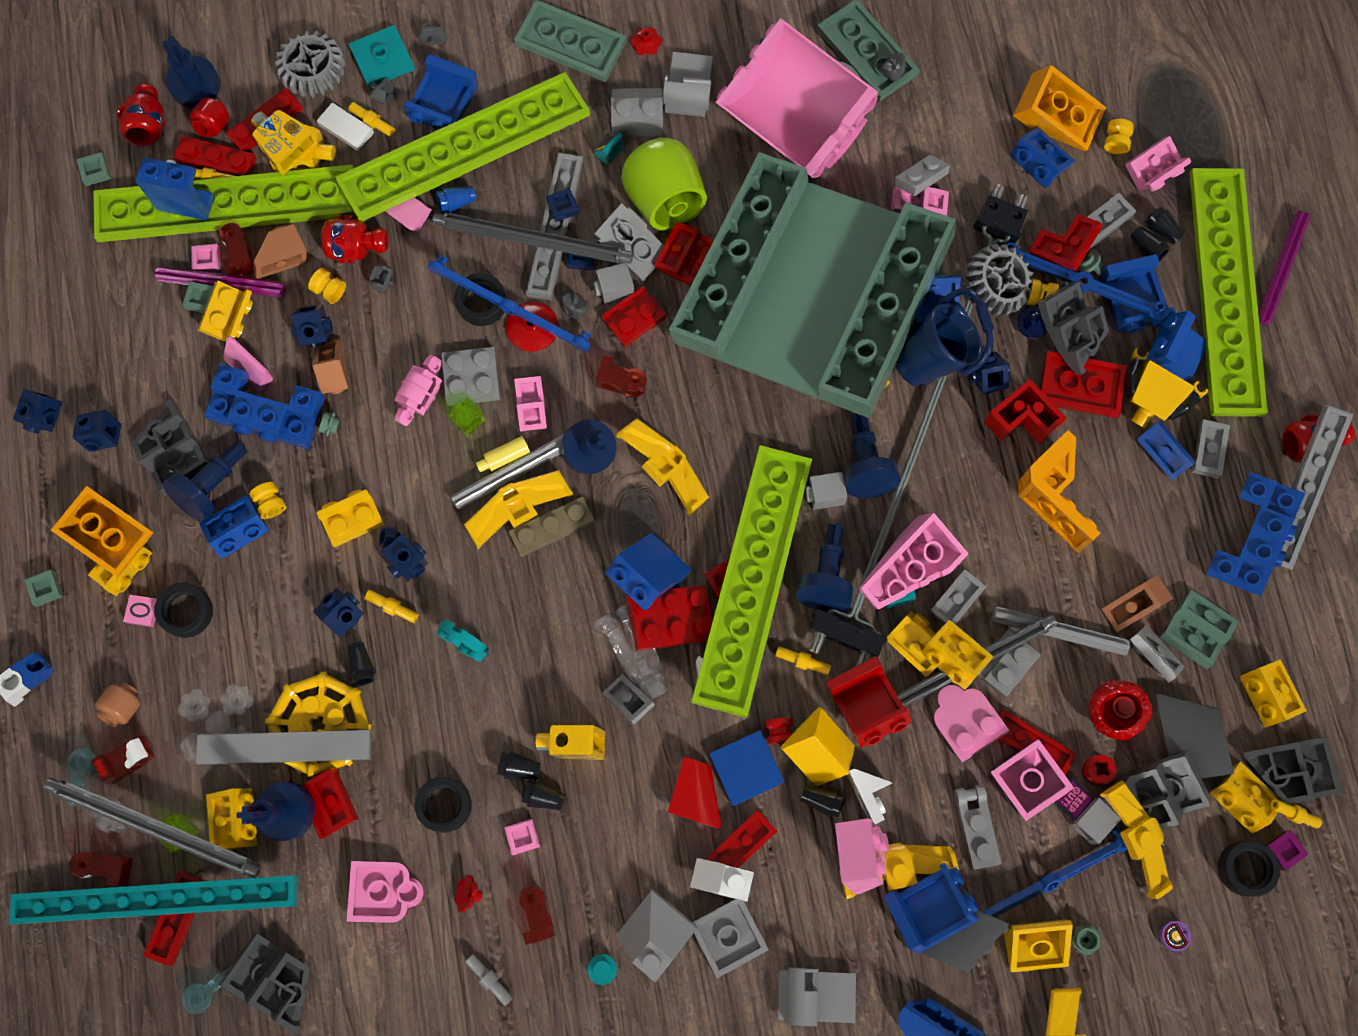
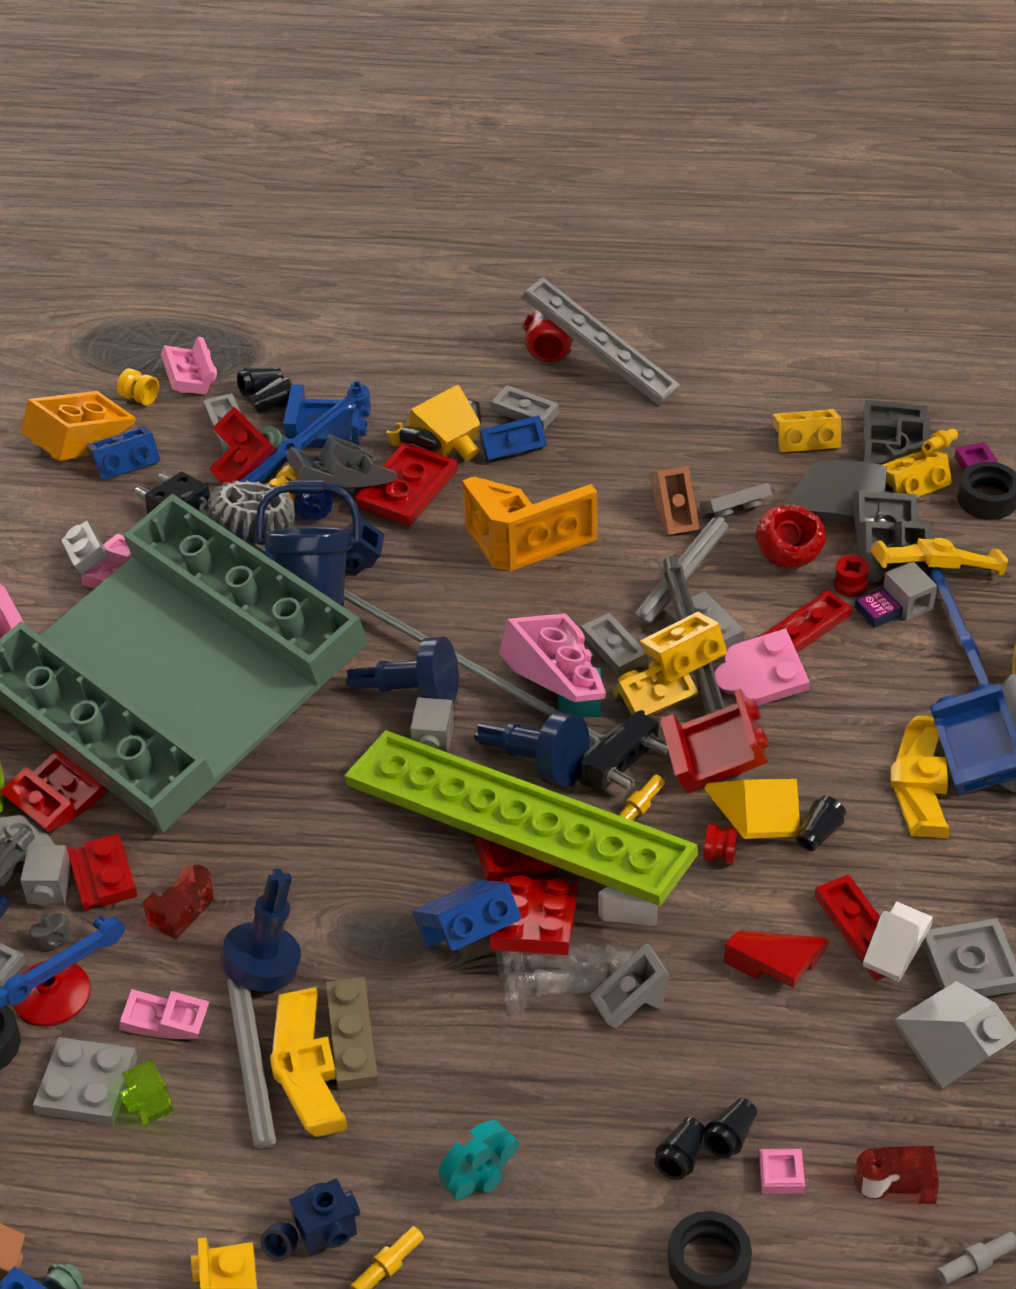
camera: 70 degrees left, 30 degrees down
(418, 390) = (76, 1141): bright pink piece -> none
(467, 894) = (842, 1260): red plant -> none
(503, 455) = (223, 1061): light yellow cylinder -> none
(582, 743) = (669, 1060): yellow torso -> none
(602, 969) = (988, 1114): teal plate -> none
(665, 463) = (330, 877): yellow plate -> none
(746, 768) = (757, 894): blue tile -> none
(861, 854) = (902, 782): bright pink slope -> none
(863, 786) = (831, 779): white slope -> none
(977, 828) = (887, 694): light grey plate -> none
(1028, 409) = (419, 526): red brick -> none
(1032, 780) = (851, 623): bright pink slope -> none
(1178, 346) = (394, 391): blue bracket -> none
(1199, 629) = (720, 466): sand green slope -> none
(1228, 293) = (358, 354): lime plate -> none
(1267, 536) = (641, 383): blue bracket -> none
(1283, 267) = (354, 313): magenta axle -> none

